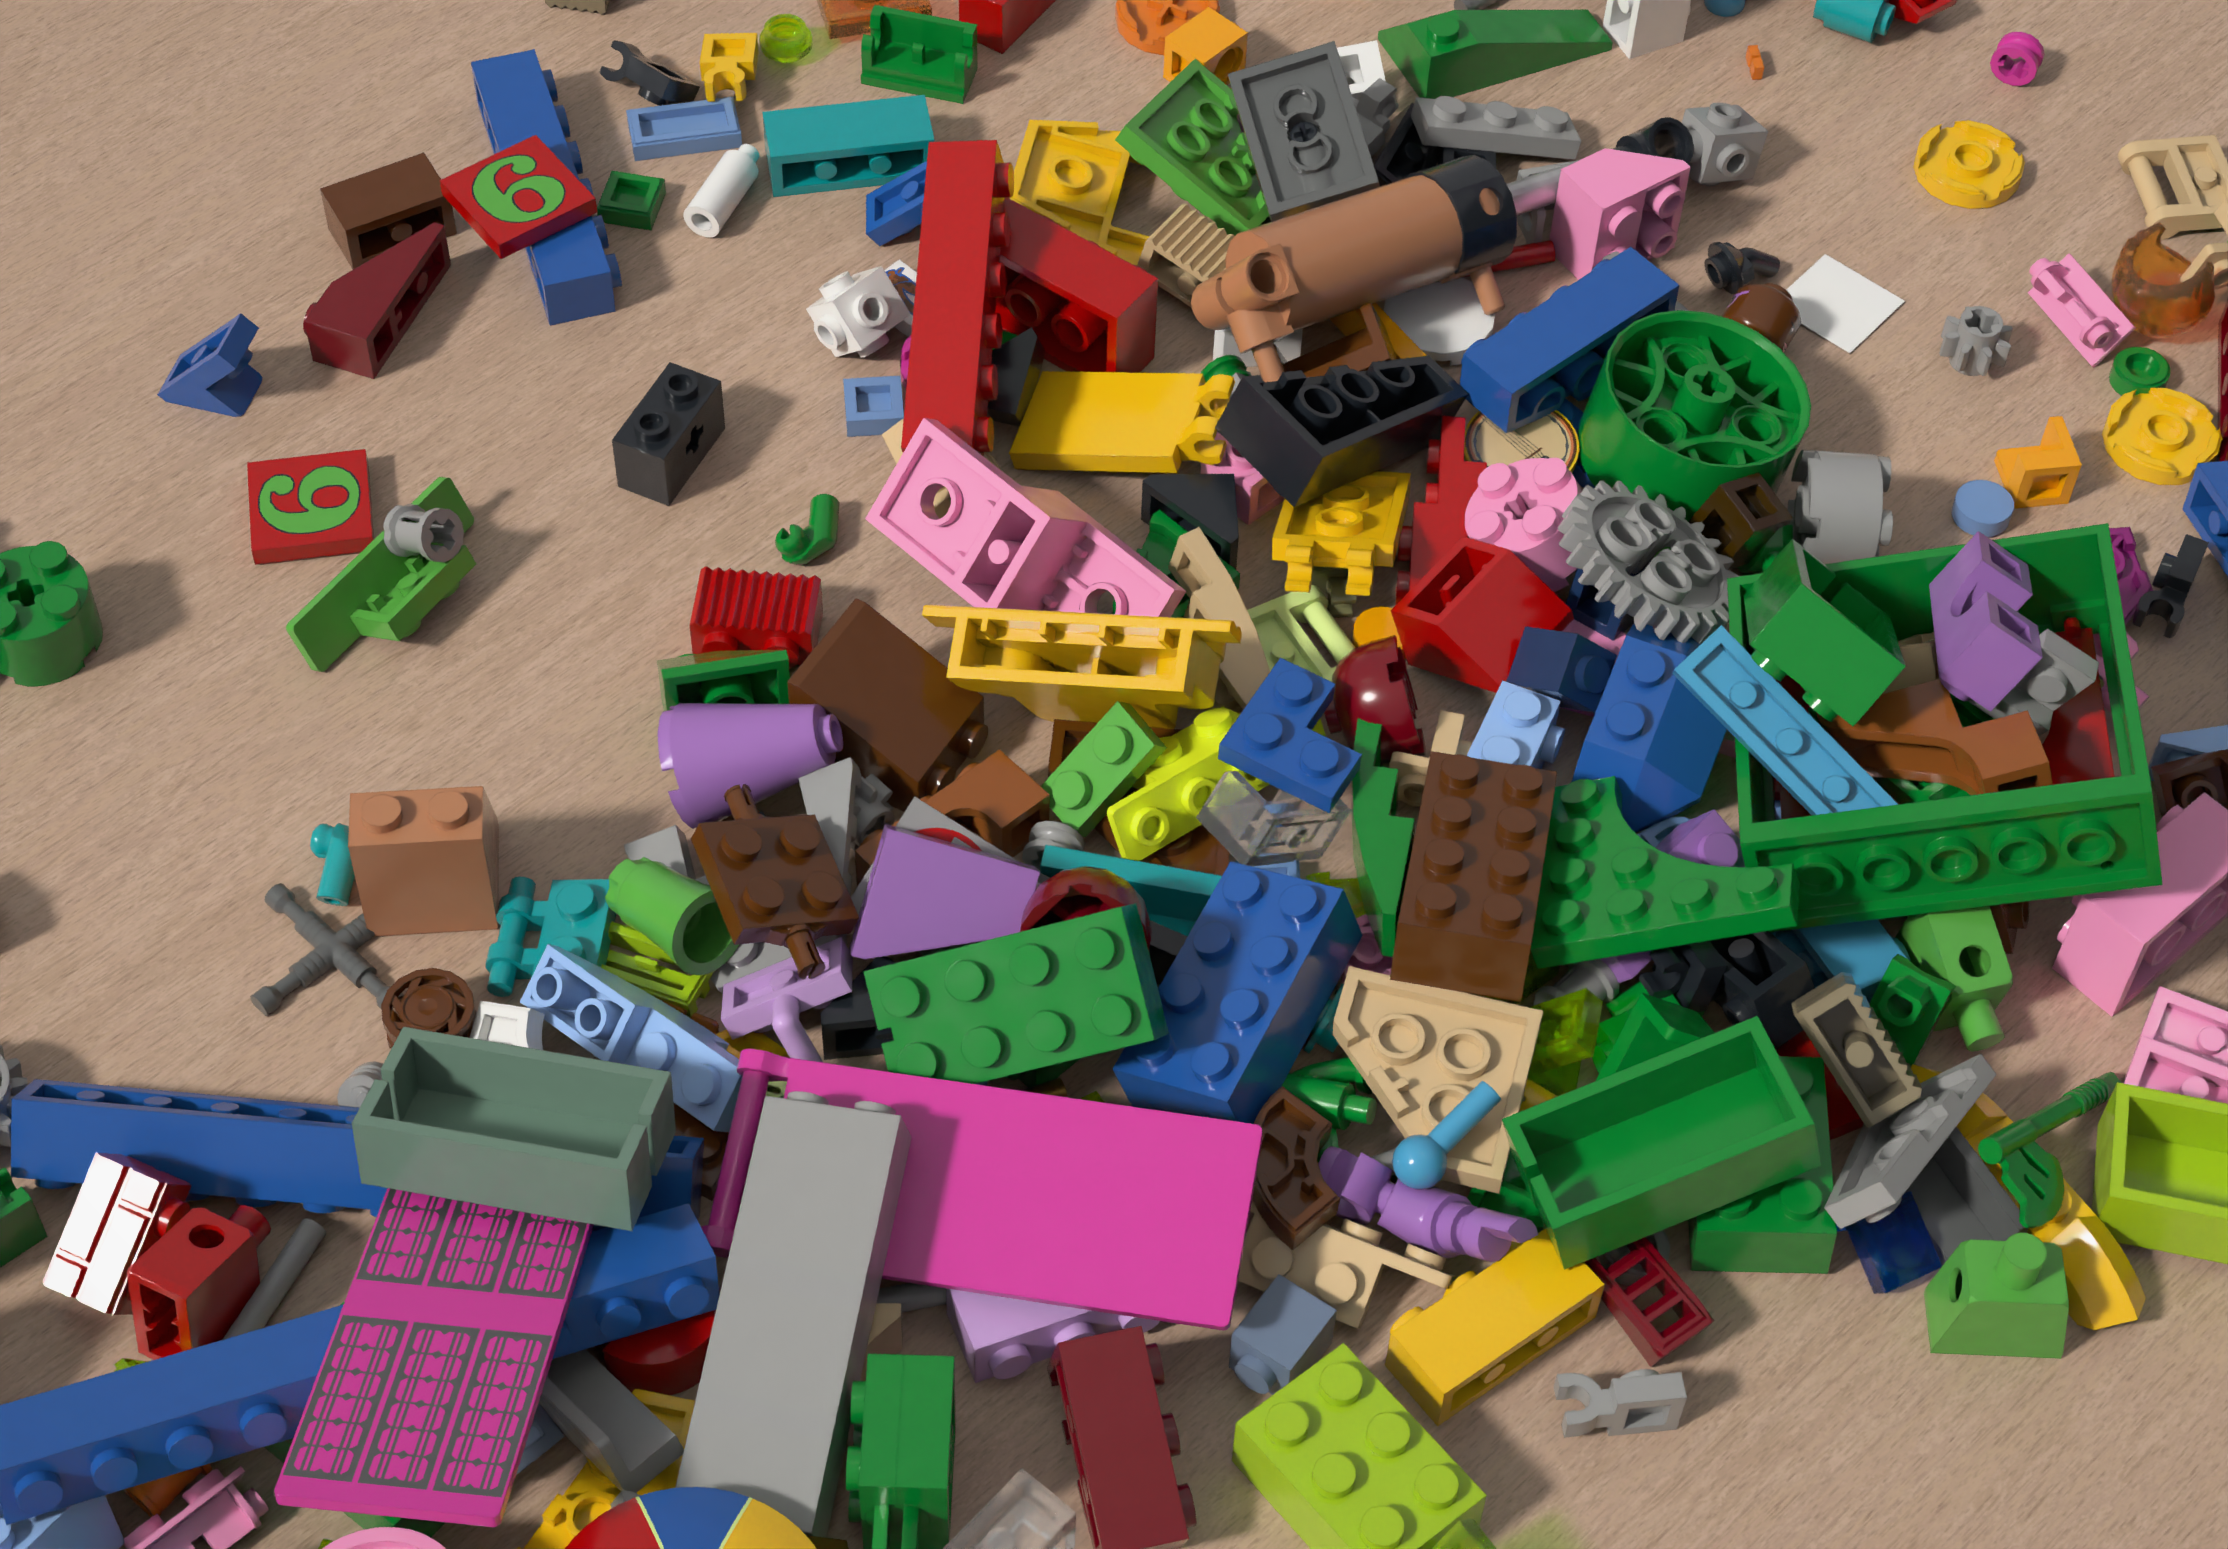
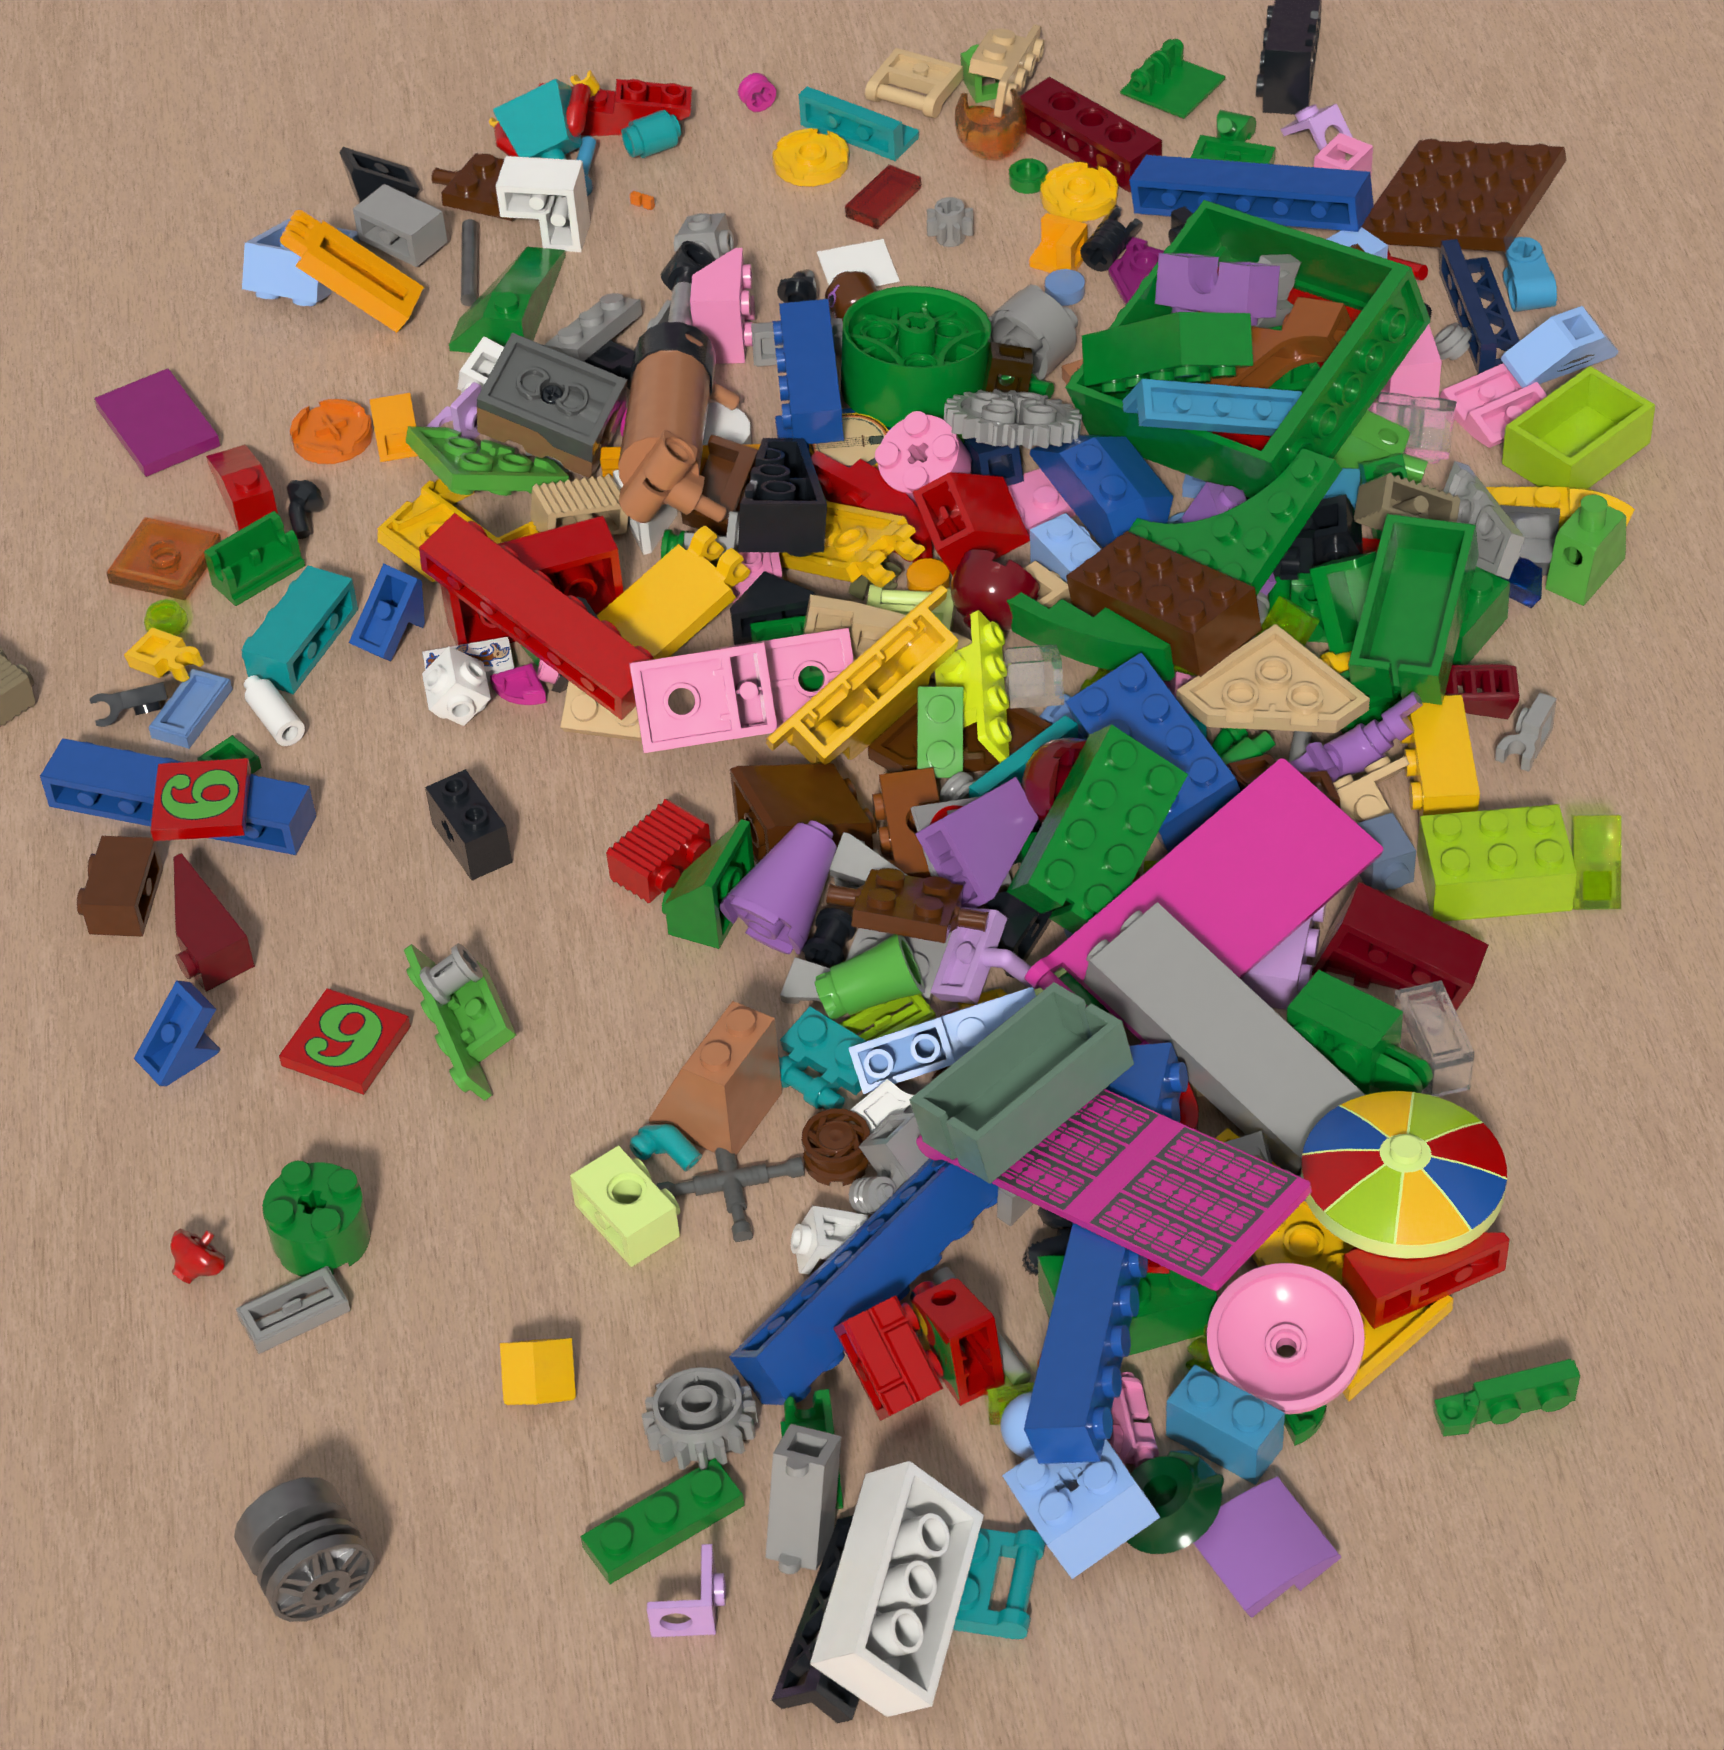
camera: 50 degrees left, 5 degrees down
(218, 870) = (626, 1205): none -> yellowish green brick
(287, 1076) = (822, 1235): none -> white bracket
(815, 539) = (612, 796): green arm -> none
(872, 404) = (529, 722): medium blue tile -> none
(1036, 44) = (304, 498): none -> black plate
(1277, 739) = (1004, 638): blue plate -> none
(1422, 1159) = (1331, 722): dark azure bar -> none
(1562, 667) = (1045, 497): dark blue brick -> none
(1967, 261) = (883, 196): none -> clear red tile
(2028, 1169) = (1511, 487): green piece -> none
(2056, 989) = (1427, 420): none -> clear brick
(2063, 174) = (855, 124): none -> teal panel
(2079, 307) = (965, 170): bright pink hinge -> none
(2101, 503) = (1108, 241): none -> black hinge

